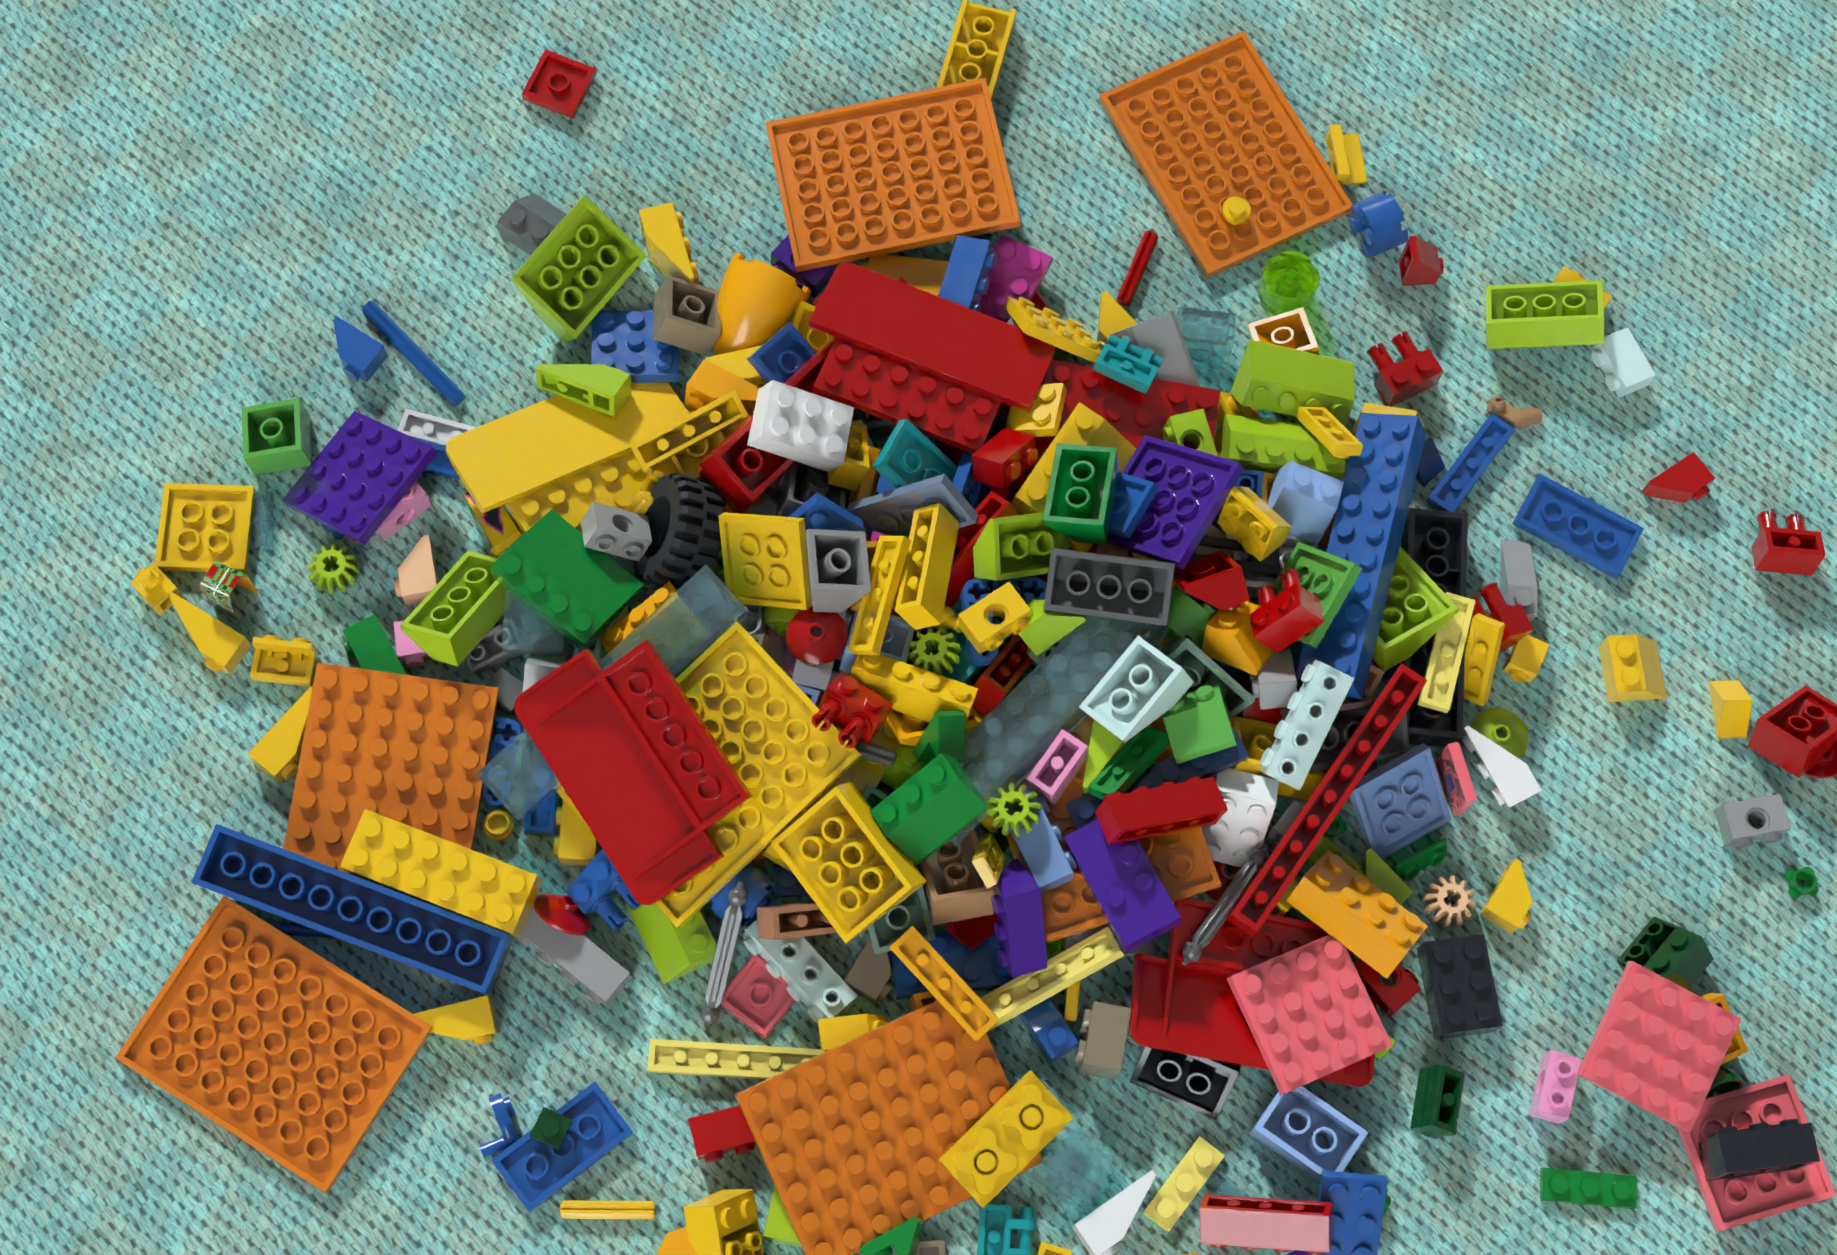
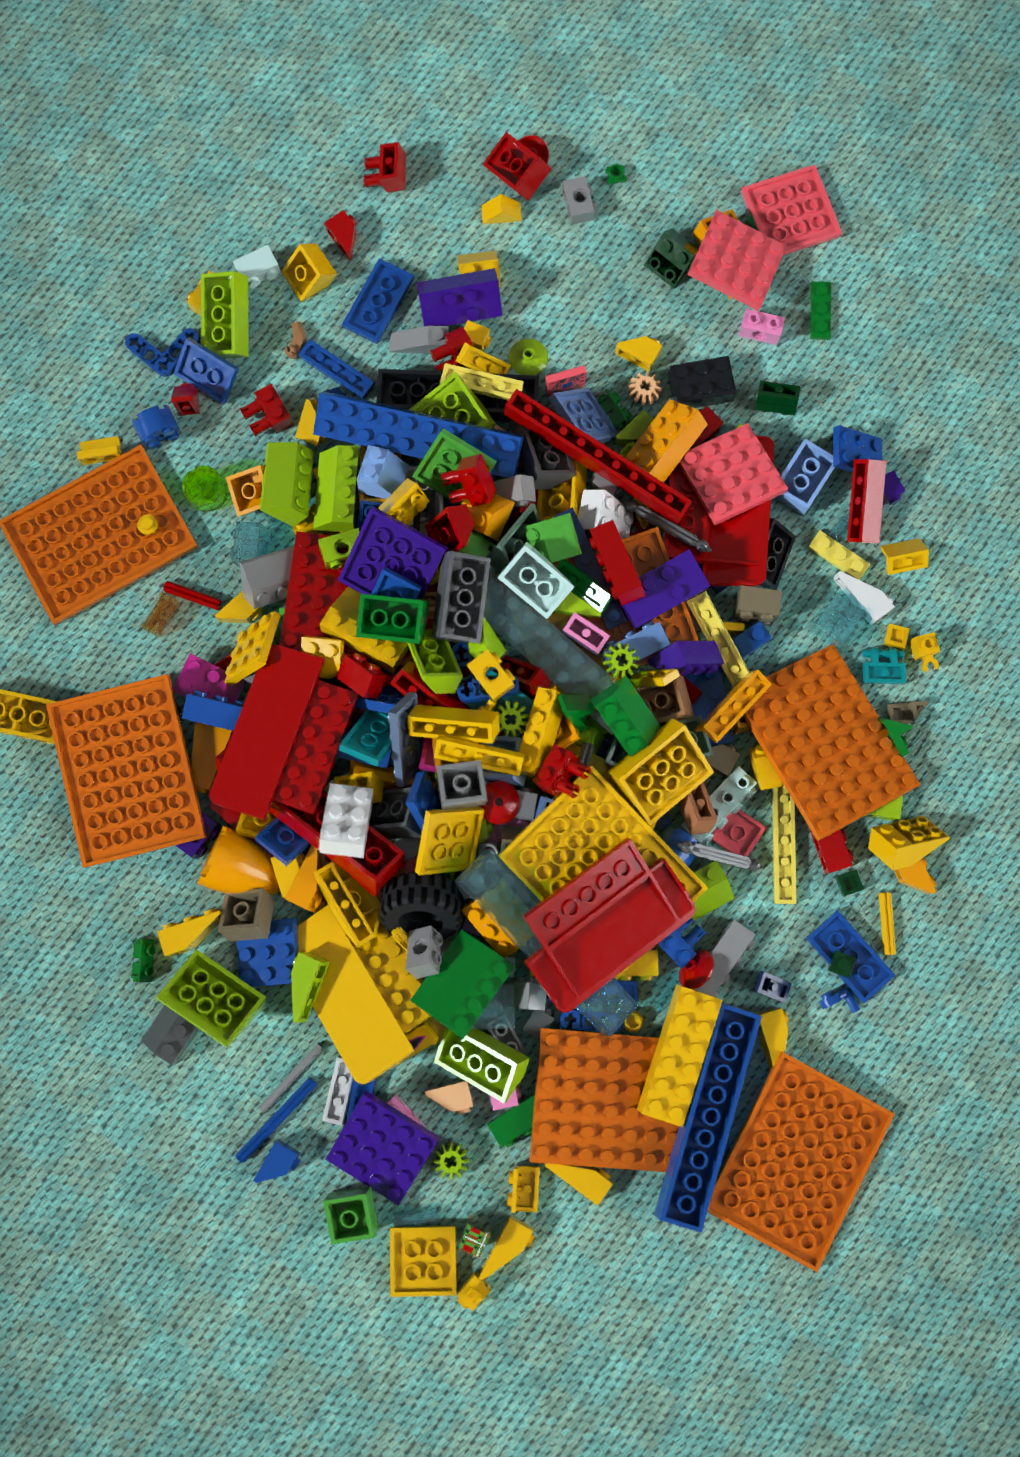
camera: 85 degrees left, 10 degrees up
(465, 372) = (291, 1078): none -> light grey bar
(528, 1023) = (772, 986): none -> dark blue slope
(559, 84) = (48, 1029): red plate -> none
(631, 197) = (144, 950): none -> green hinge
(672, 1155) = (849, 883): none -> dark green plate
(1006, 1139) = (826, 665): yellow piece -> none
(1109, 227) = (160, 615): none -> clear orange hinge
(1128, 363) = (286, 595): teal plate -> none
(1306, 724) = (550, 467): light aqua brick -> none
(1329, 431) = (329, 455): yellow plate -> none
(1462, 290) = (206, 370): none -> blue plate
(1482, 236) = (159, 358): none -> blue beam
(1508, 773) = (560, 347): white slope -> none
(1581, 633) = (460, 298): none -> dark purple brick
(1620, 432) = (308, 271): none -> yellow slope
(1758, 1149) = (798, 204): black brick -> none

